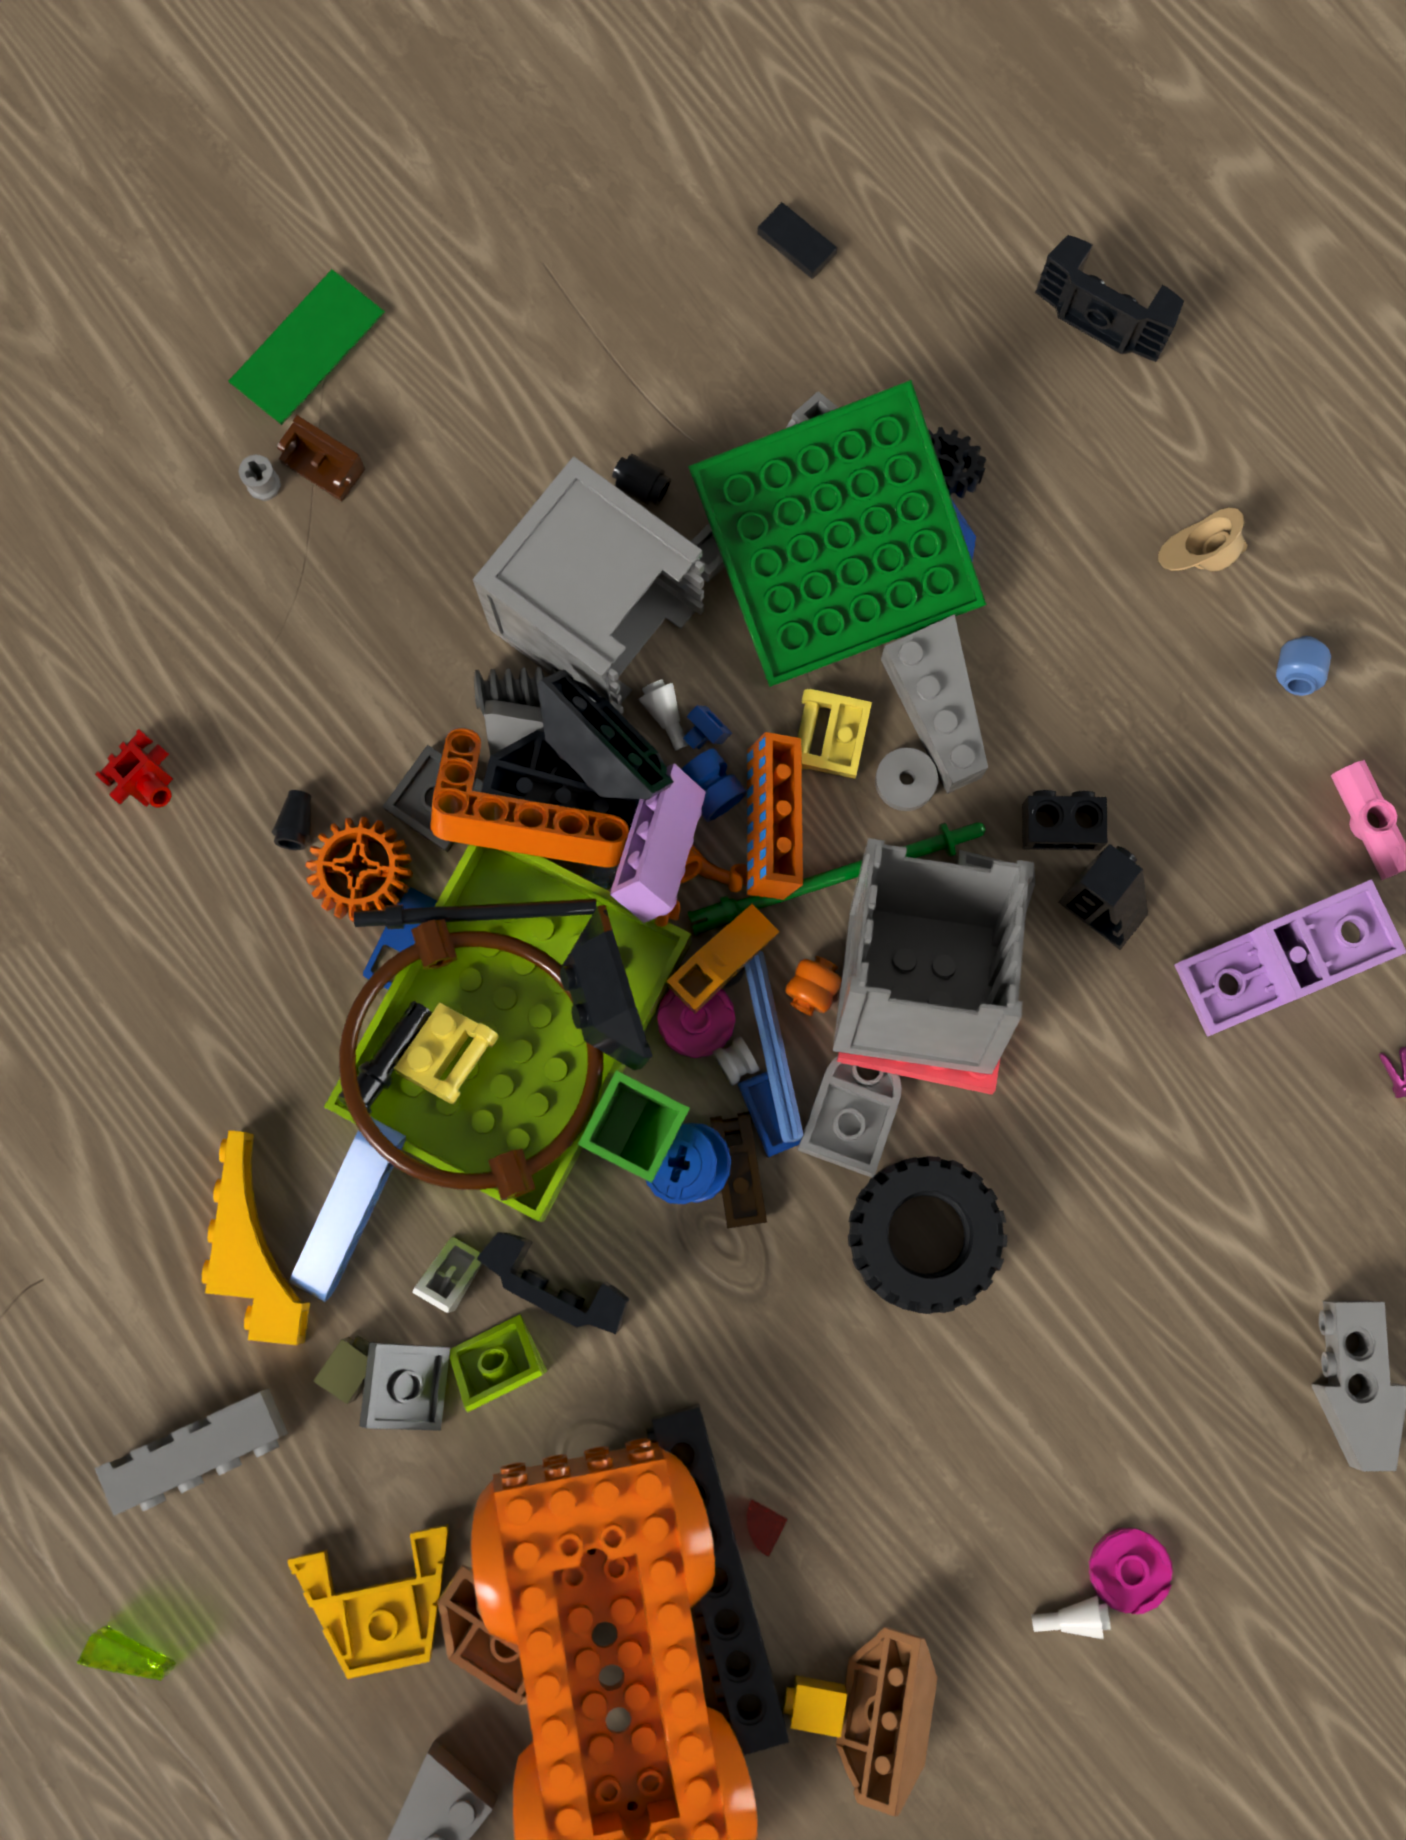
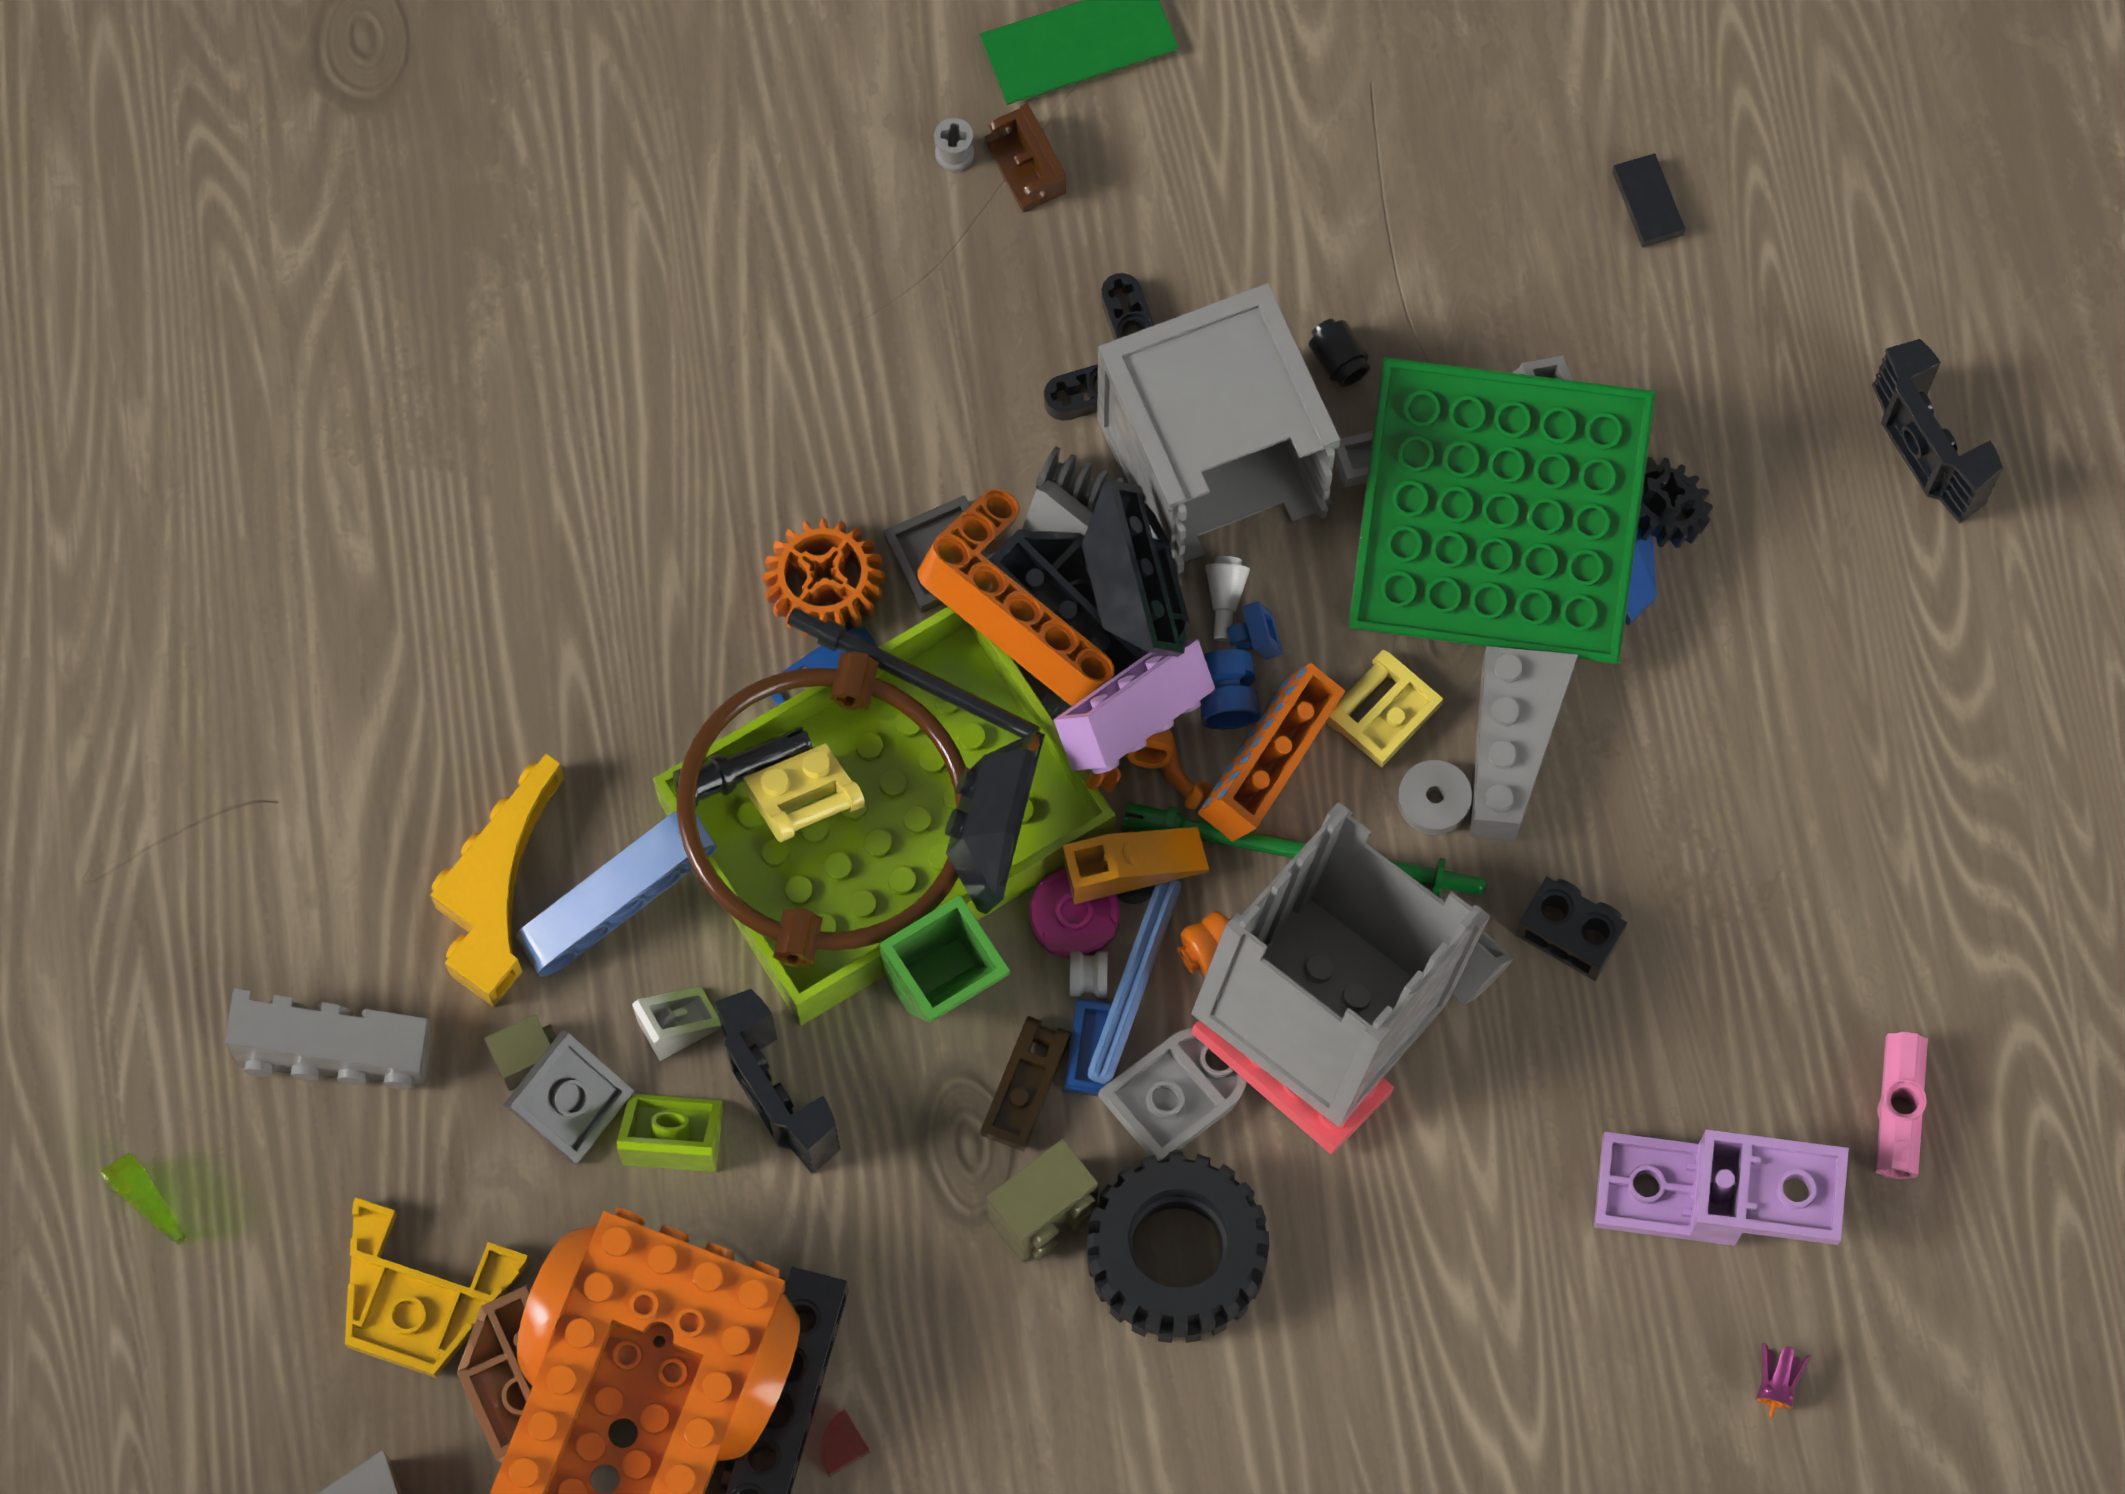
camera: 30 degrees right, 10 degrees down
(138, 773) = (662, 365): red piece -> none
(294, 822) = (785, 498): black cone -> none
(453, 540) = (1071, 381): none -> black beam
(707, 1171) = (979, 1043): blue piece -> none
(810, 1259) = (1043, 1201): none -> olive brick
(1110, 895) = (1568, 1018): black wedge -> none
(1207, 544) = (1894, 733): tan piece -> none
(1303, 665) = (1922, 910): medium blue head -> none

